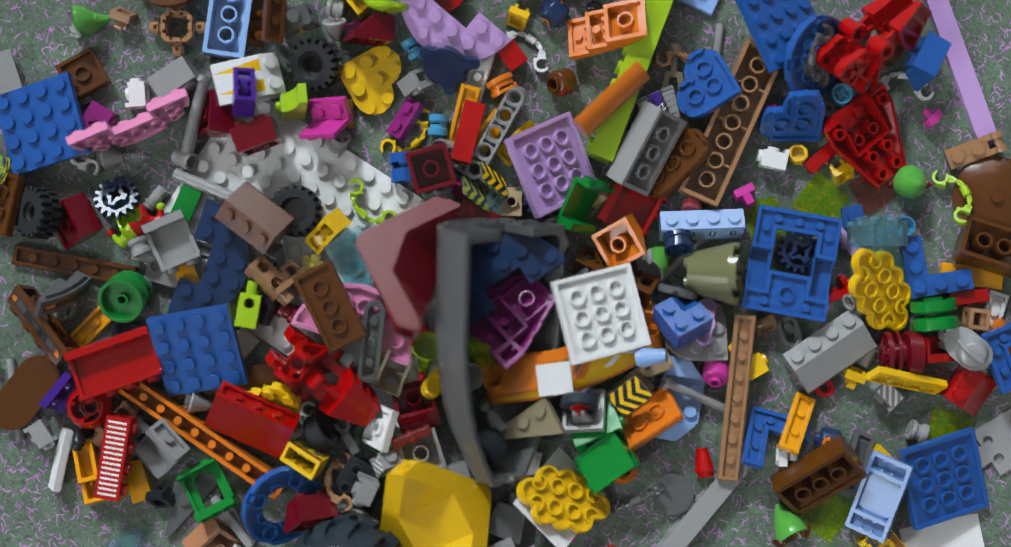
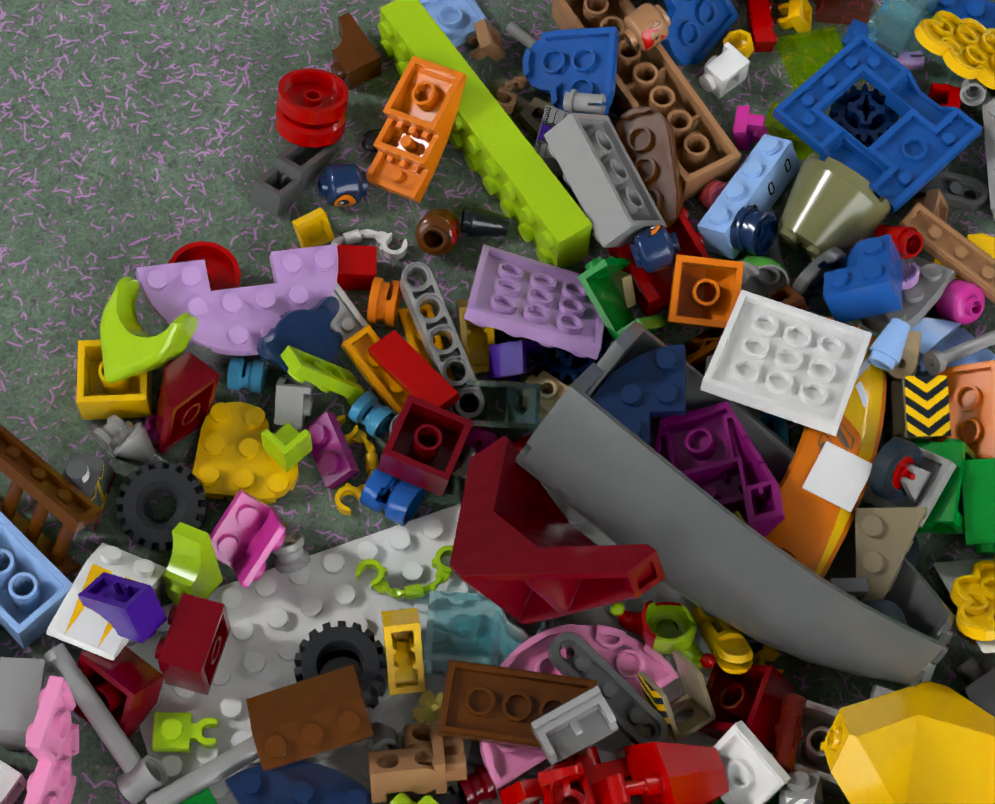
camera: 60 degrees left, 25 degrees down
(217, 158) = (176, 731): none -> lime plate
(334, 340) = (574, 726): none -> light grey hinge
(388, 98) = (287, 445): none -> lime panel
(434, 88) = (322, 374): none -> lime plate
(508, 173) = (509, 360): none -> dark purple panel
(584, 96) = (482, 222): none -> black cone
(611, 99) = (512, 166): orange brick -> none
(624, 201) = (654, 248): none -> dark blue head
(685, 104) = (583, 102): none -> light grey pin
(699, 21) = (488, 40): none -> medium nougat tile
(725, 320) = (906, 239): none -> red cone
(757, 104) = (646, 26): none -> medium nougat head

